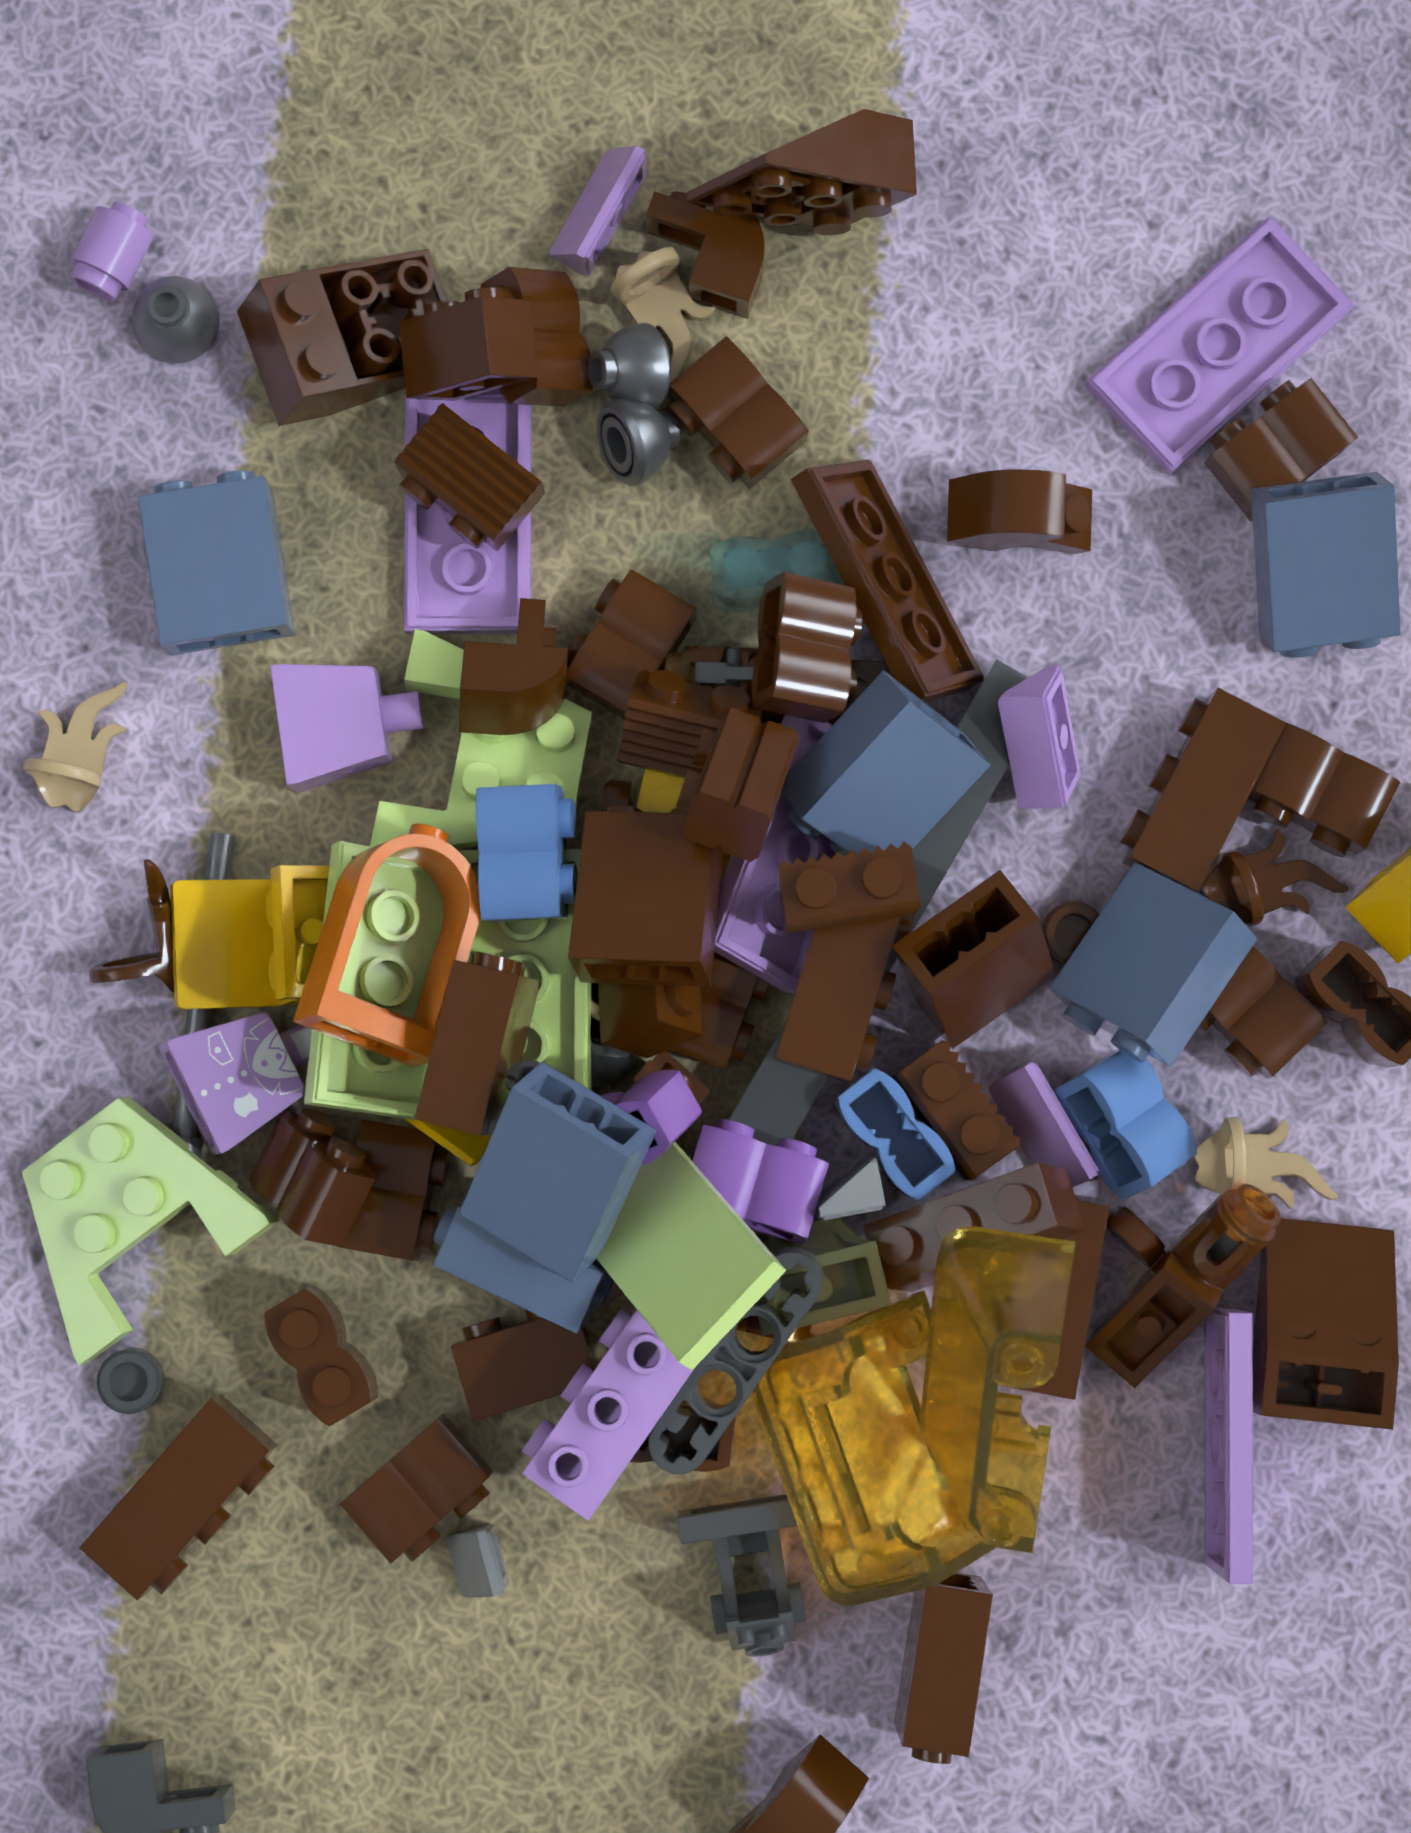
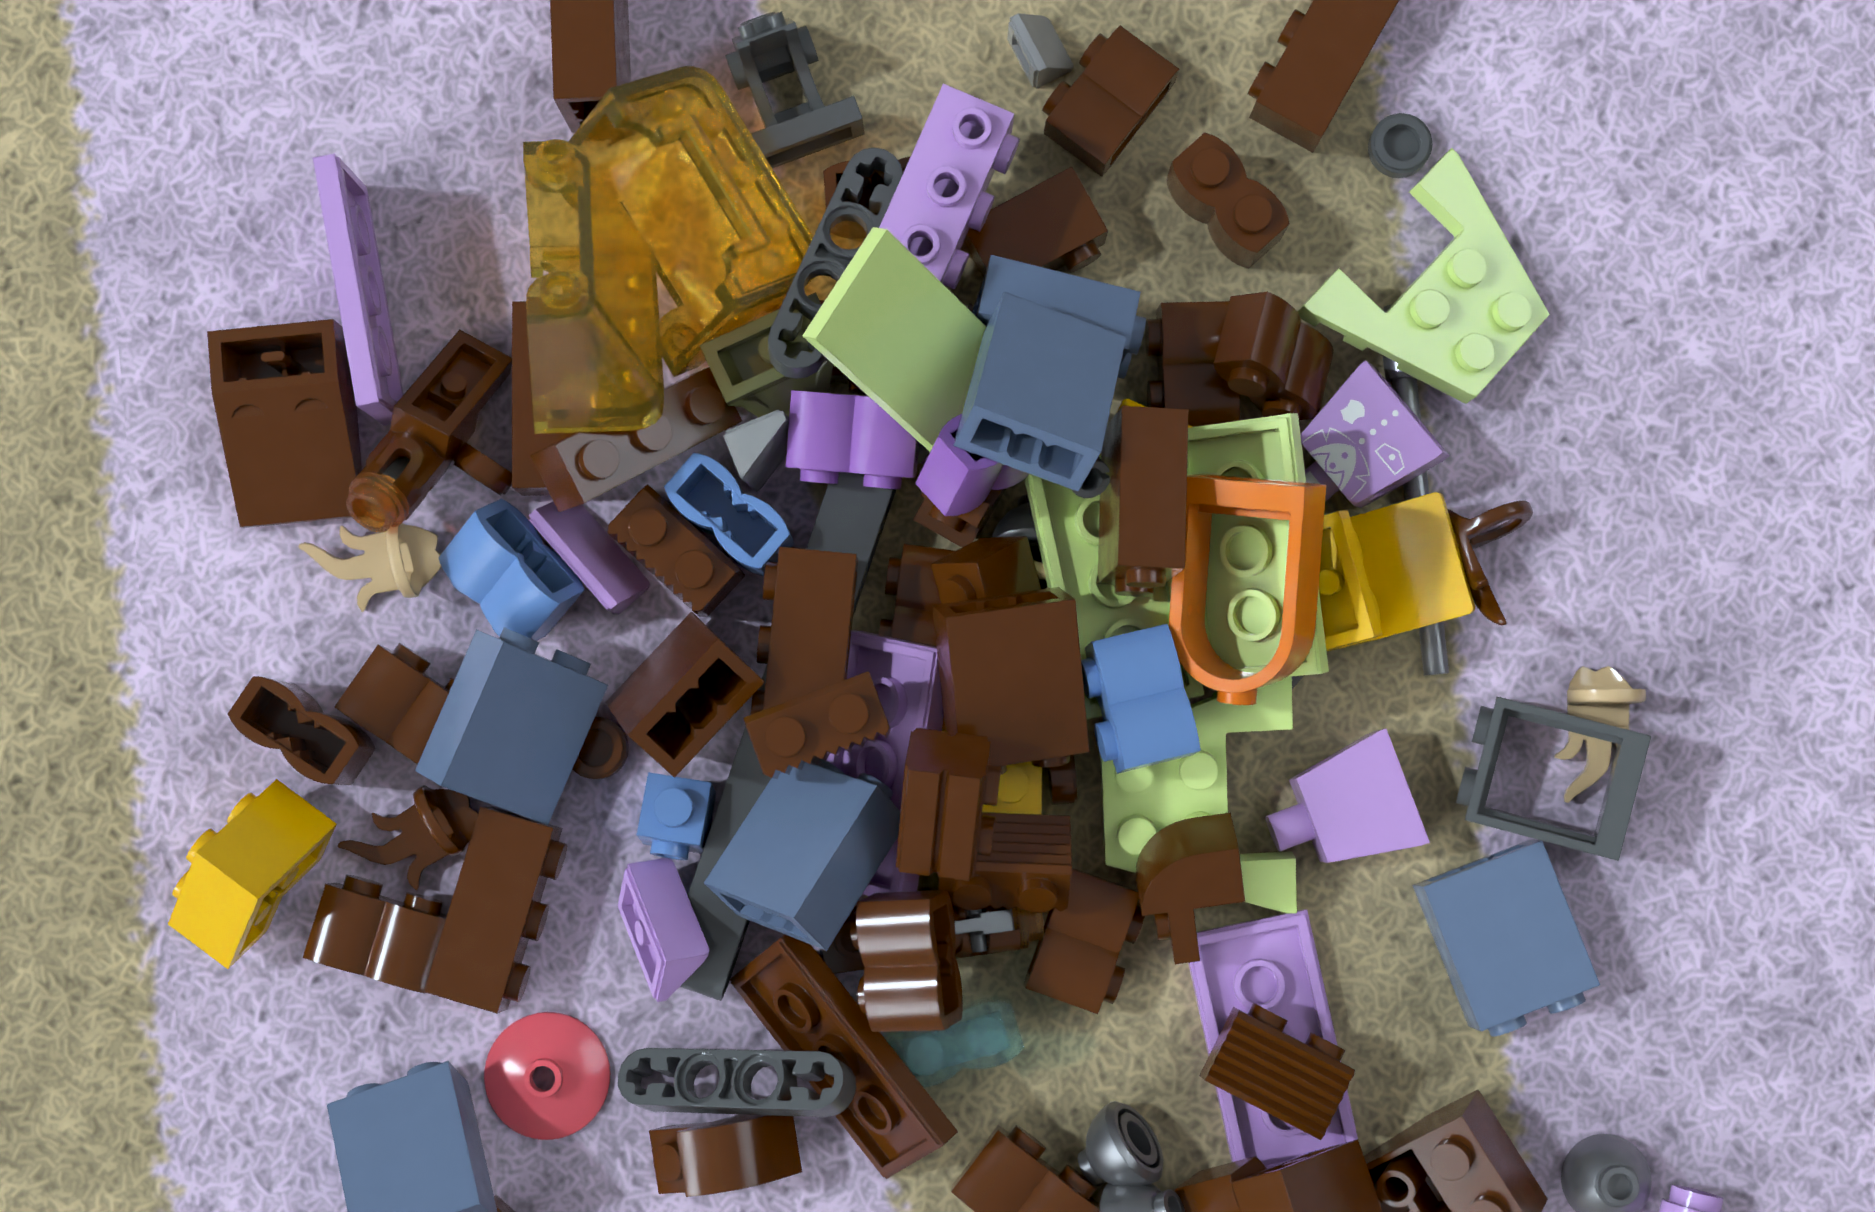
camera: 170 degrees right, 0 degrees up
(75, 669) = (1619, 793): none -> dark grey window
(996, 577) = (734, 1087): none -> dark grey beam
(1007, 843) = (675, 815): none -> medium blue brick
(1166, 652) = (578, 1067): none -> coral dish

